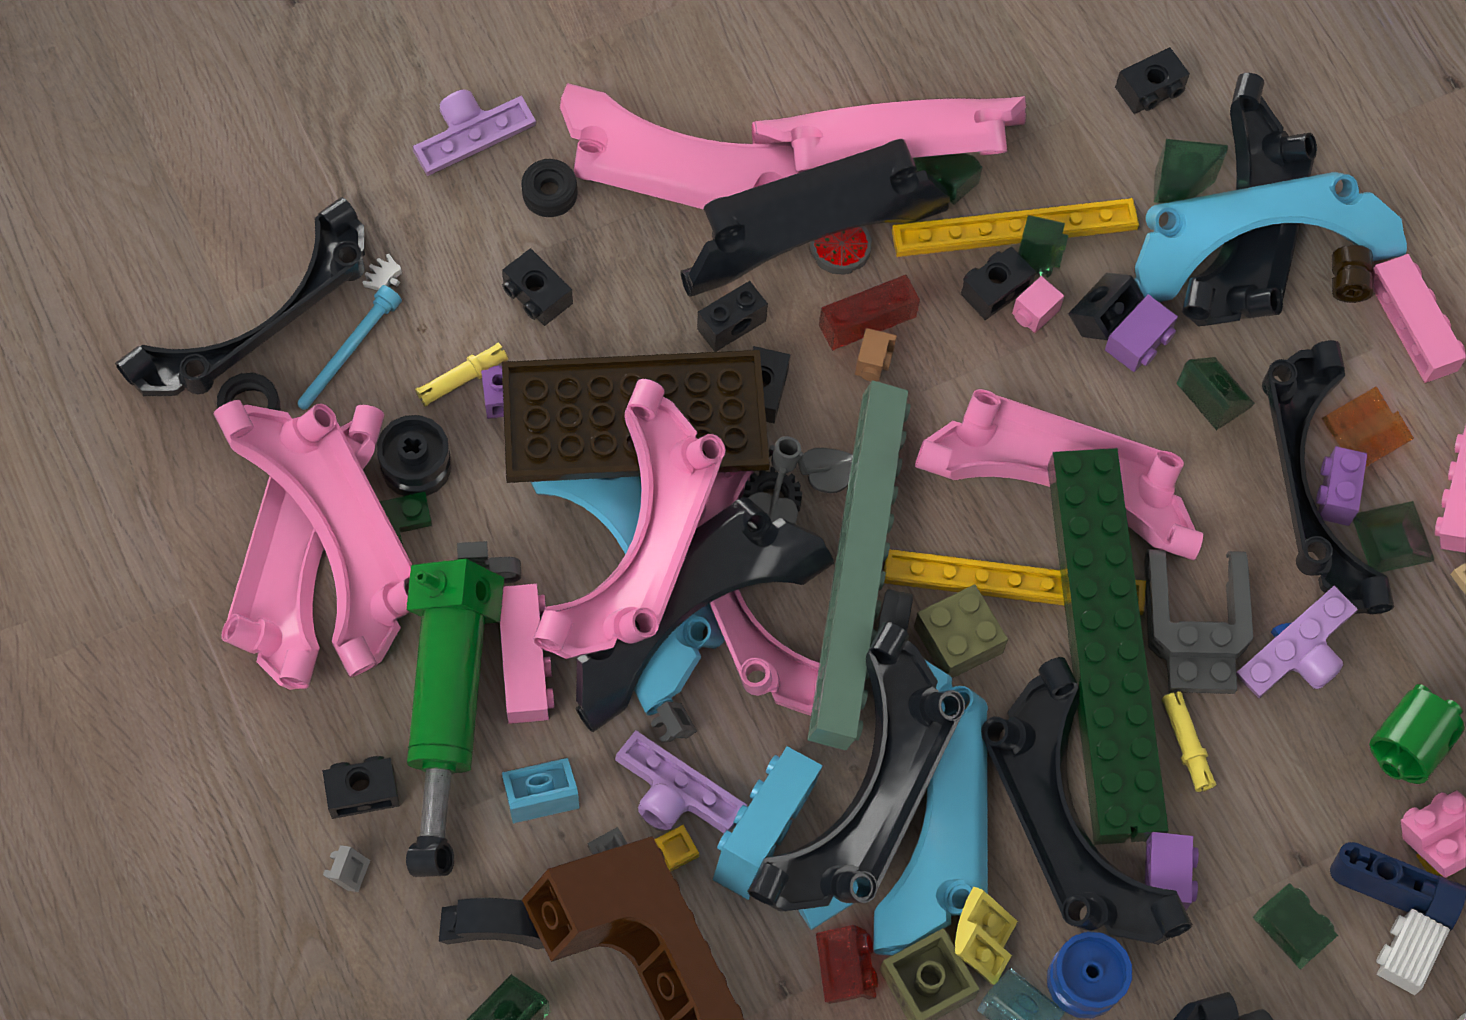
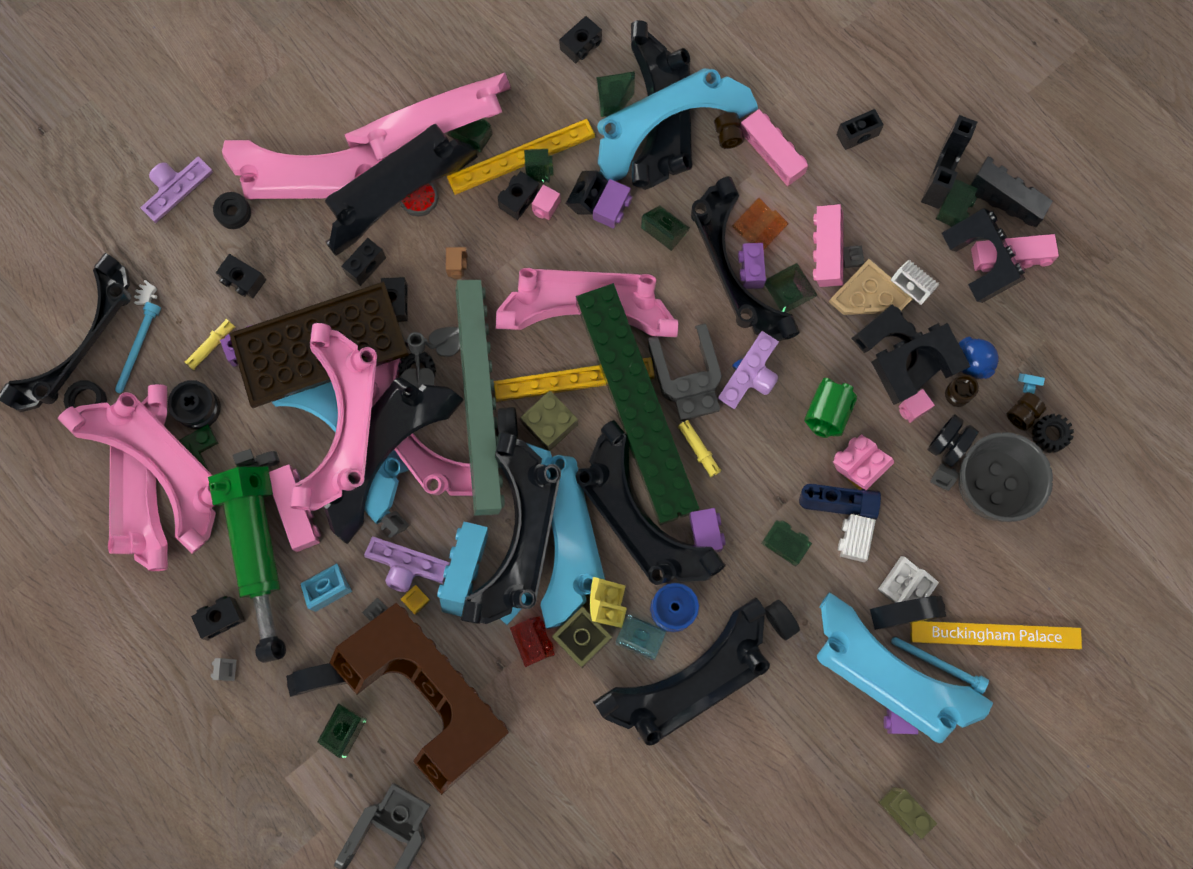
camera: 10 degrees left, 10 degrees up
(872, 309) = (446, 234): clear red brick -> none

